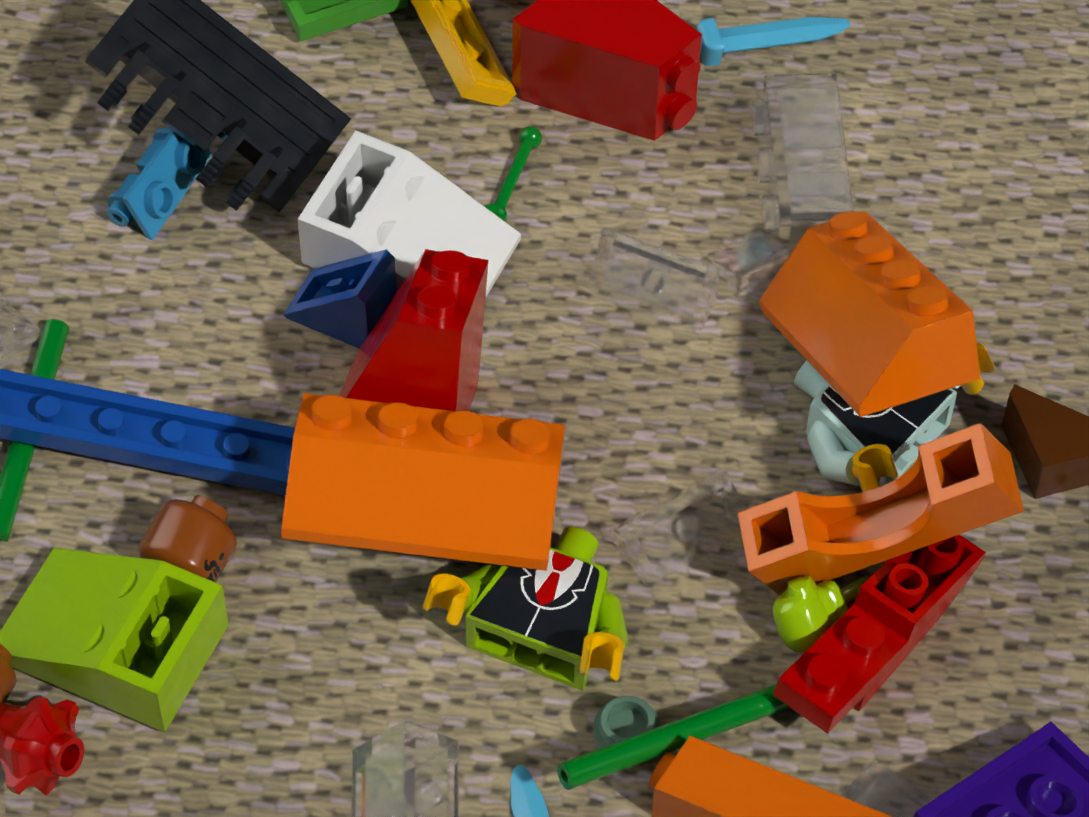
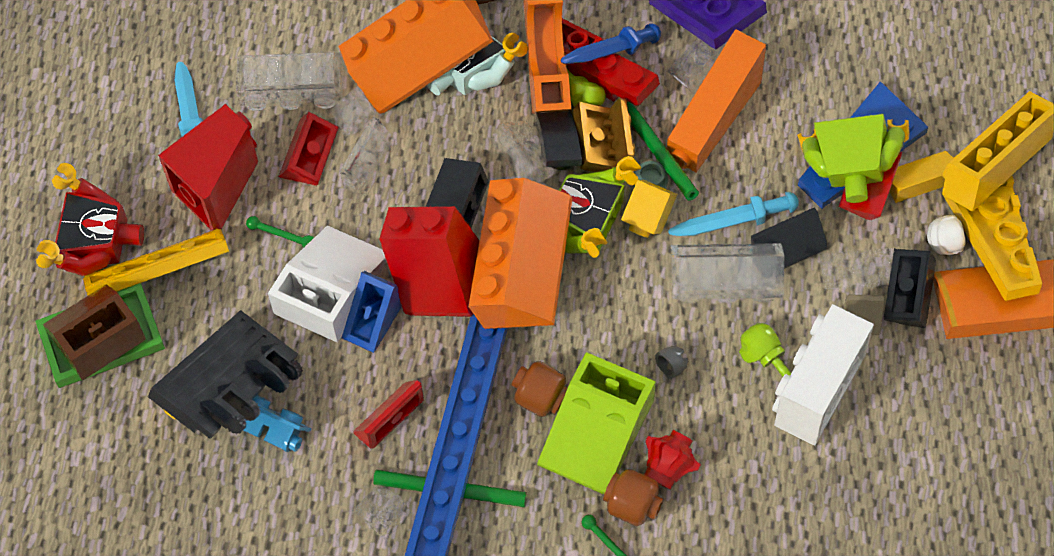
camera: 85 degrees left, 5 degrees up
(161, 336) = (390, 413): none -> red slope
(236, 748) = (672, 356): none -> dark grey hinge
(547, 710) = (648, 208): none -> yellow brick
(593, 406) = (459, 185): none -> black hinge
(675, 205) = (309, 150): none -> red slope
(690, 565) = (558, 140): none -> black slope
(708, 639) = (603, 134): none -> pearl gold bracket
(927, 680) = (626, 40): none -> blue sword

